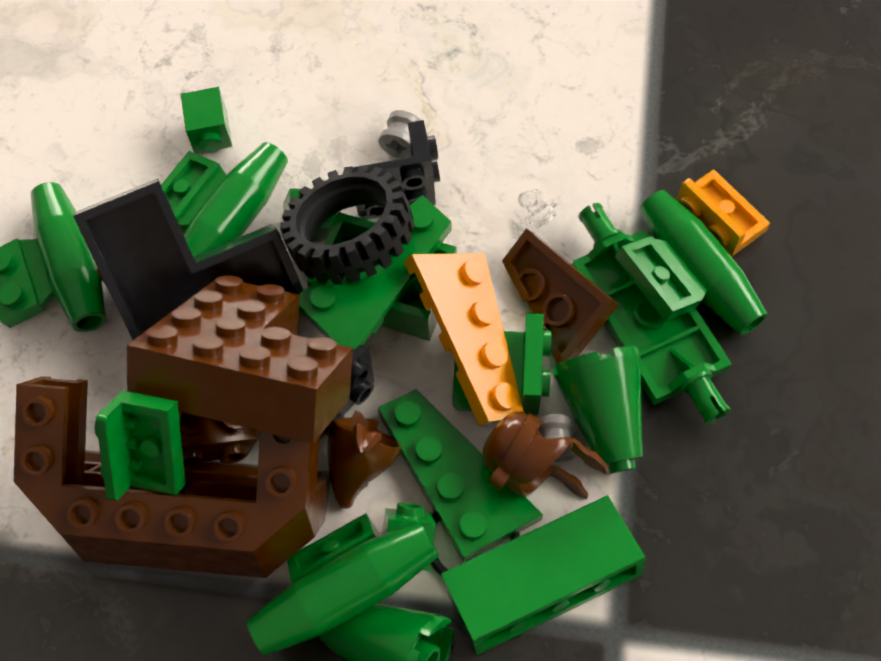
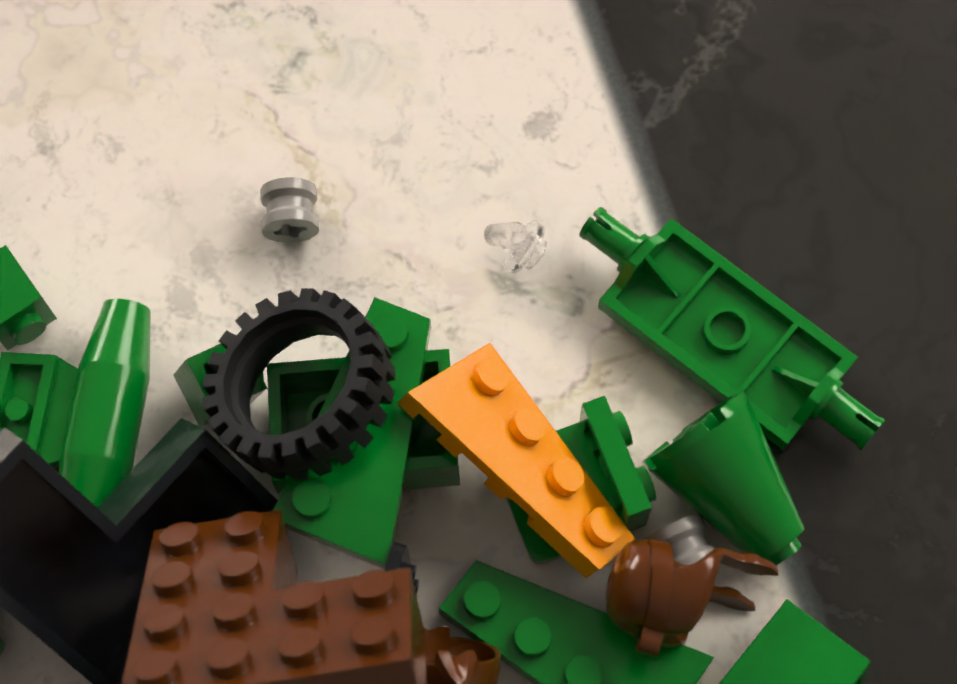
camera: 25 degrees left, 5 degrees up
(413, 173) = (347, 261): black bracket -> none
(553, 287) = (600, 354): reddish brown wing -> none
(688, 267) = (749, 249): green plate -> none
(723, 211) = (755, 155): light orange bracket -> none

